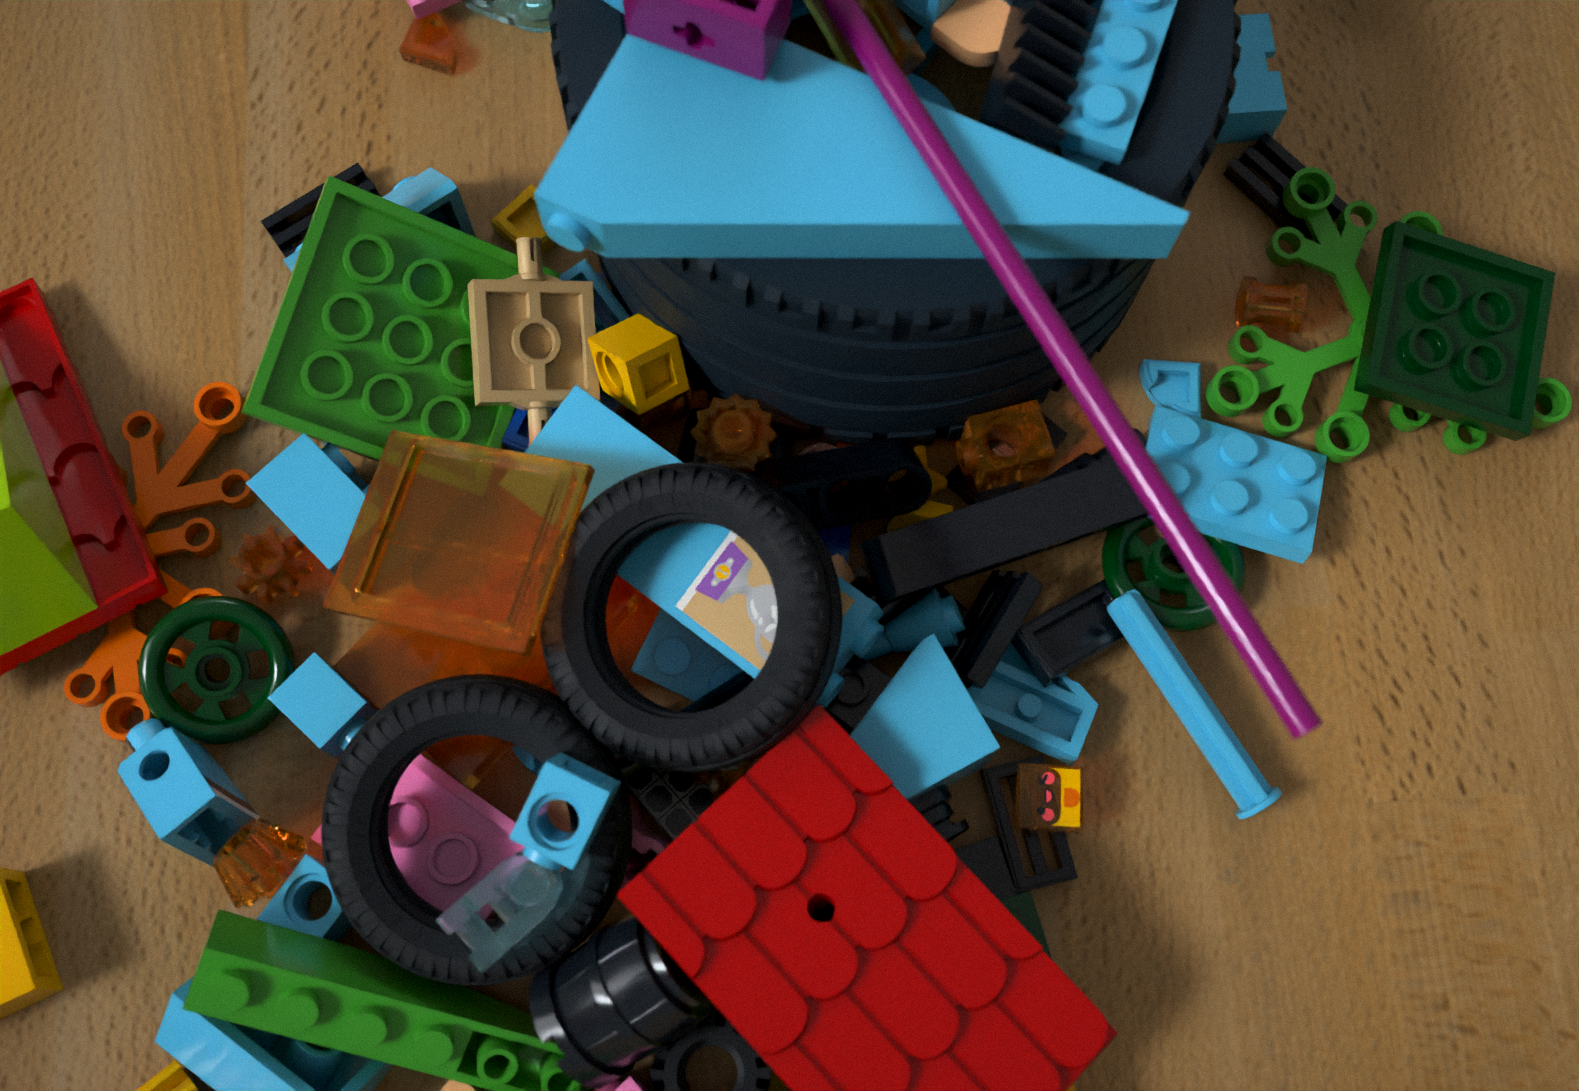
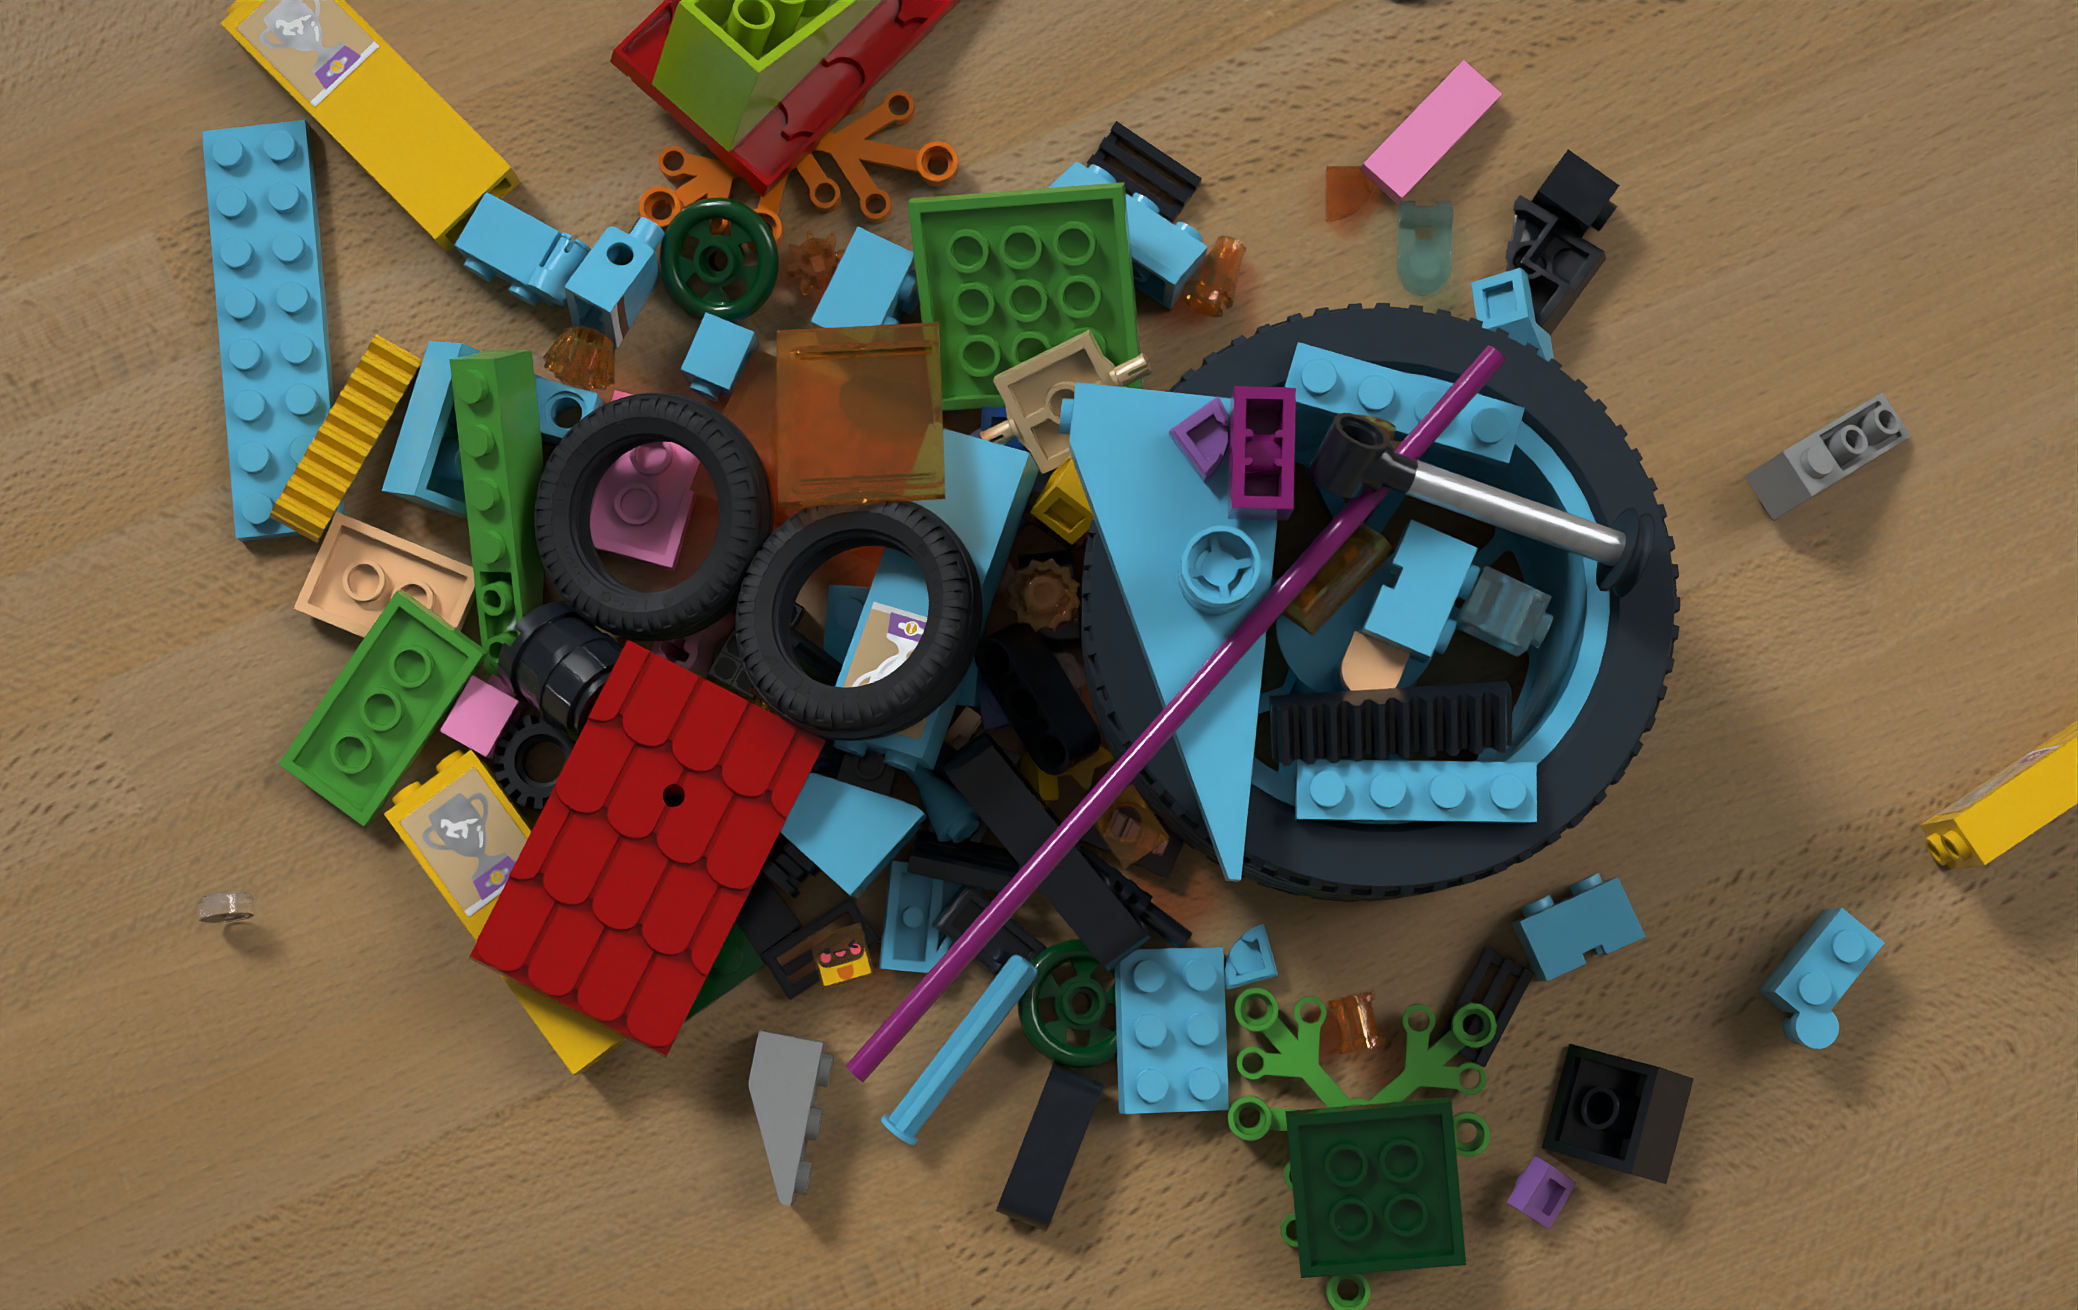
camera: 75 degrees right, 10 degrees up
(101, 892) = (520, 251): none -> medium azure hinge
(477, 184) = (1215, 280): none -> clear orange cone
(518, 893) = (611, 568): clear light blue plate -> none
(522, 220) = (1199, 340): yellow tile -> none
(585, 790) = (695, 582): medium azure brick -> none
(660, 76) = (1203, 438): none -> medium lavender tile
(826, 90) = (1218, 569): none -> medium azure wheel
(1184, 916) = (784, 1095): none -> light grey slope
(1328, 649) = (1049, 1147): none -> black beam
(1425, 105) = (1618, 1113): none -> black slope
(1485, 196) = (1541, 1192): none -> medium lavender plate

